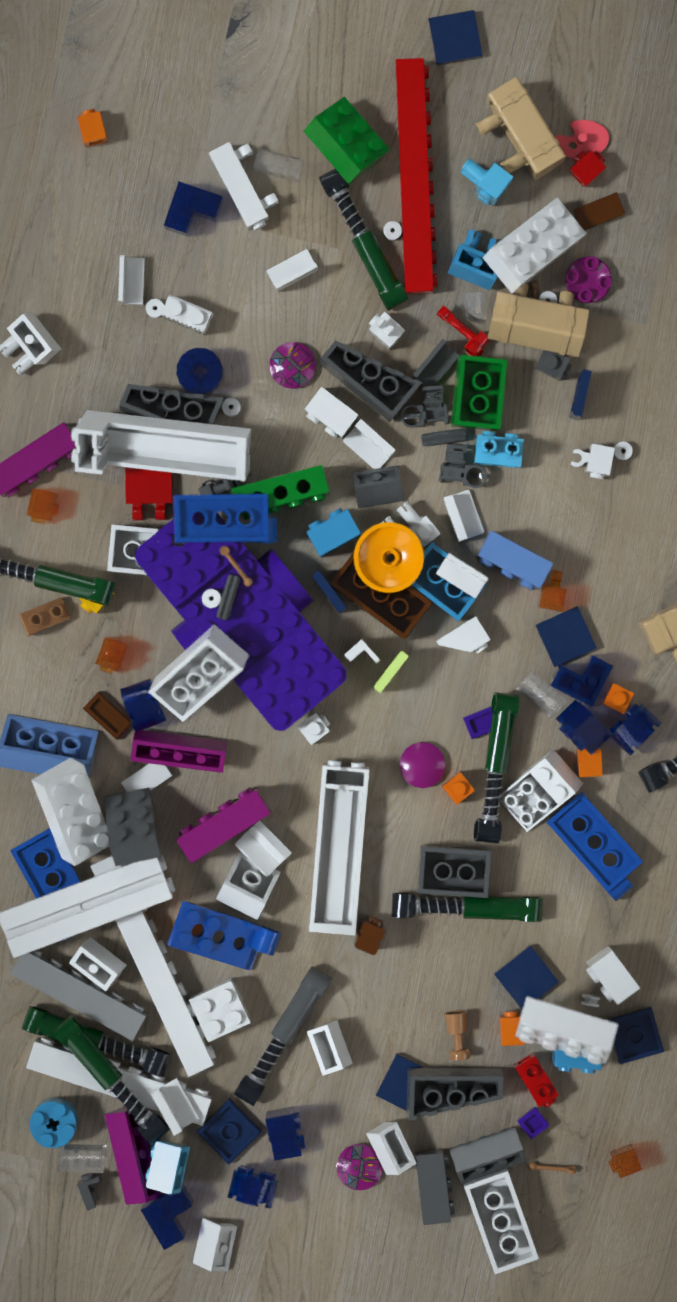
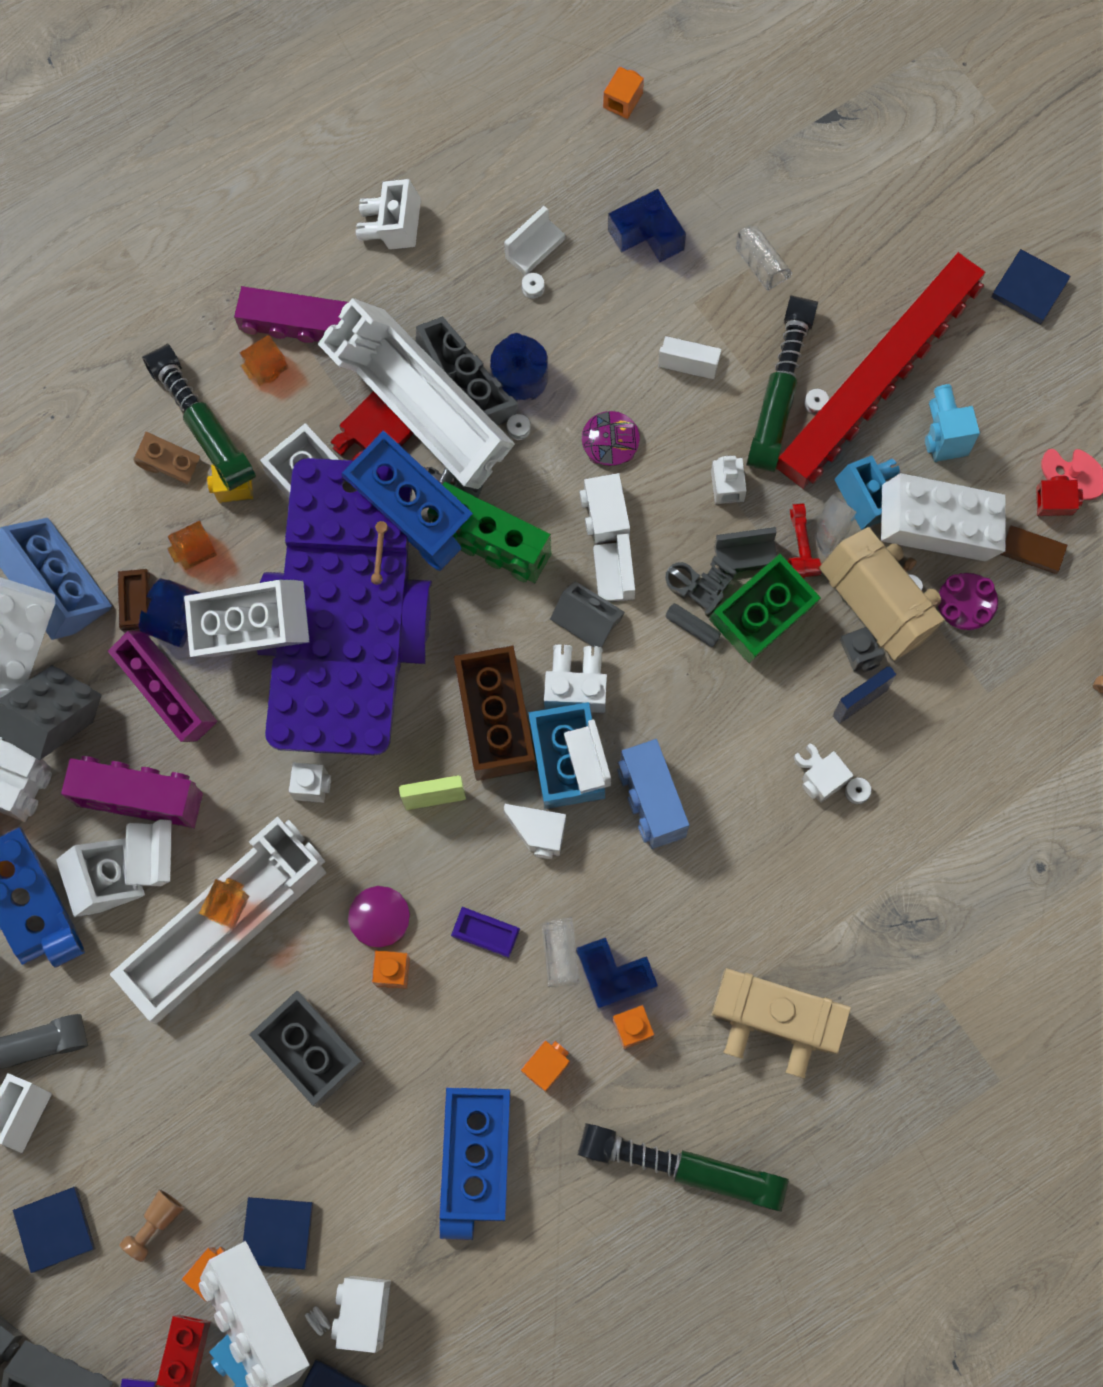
camera: 45 degrees right, 15 degrees down
(148, 776) = (115, 689): white tile -> none
(187, 314) = (555, 310): white brick -> none
(207, 594) = (330, 557): white piece -> none
(228, 597) = (344, 575): dark grey axle -> none
(239, 186) = (709, 243): white brick -> none
(329, 592) = (446, 664): dark blue tile -> none
(334, 532) = (502, 613): dark azure brick -> none
(337, 837) = (225, 903): none -> clear orange brick
(346, 140) = (846, 281): green brick -> none
(357, 649) = (421, 743): white panel -> none
(369, 379) = (671, 509): dark grey wedge -> none
(370, 935) = (162, 1034): reddish brown brick -> none
(372, 553) = (529, 658): light orange dish -> none
(450, 1088) = (87, 1274): dark grey wedge -> none
(455, 467) = (682, 661): dark grey piece -> none
(463, 515) = (643, 712): white panel -> none
(497, 908) = (291, 1106): piece -> none
(498, 451) = (734, 681): medium azure brick -> none
(503, 710) = (450, 981): piece -> none
(525, 128) = (1028, 410): tan piece -> none
(540, 790) = (470, 1049): white slope -> none
(552, 596) = (661, 865): clear orange brick -> none
(565, 636) = (637, 919): dark blue tile -> none
(583, 727) = (570, 1019): clear blue brick -> none
(634, 729) = (622, 1072): clear blue brick -> none

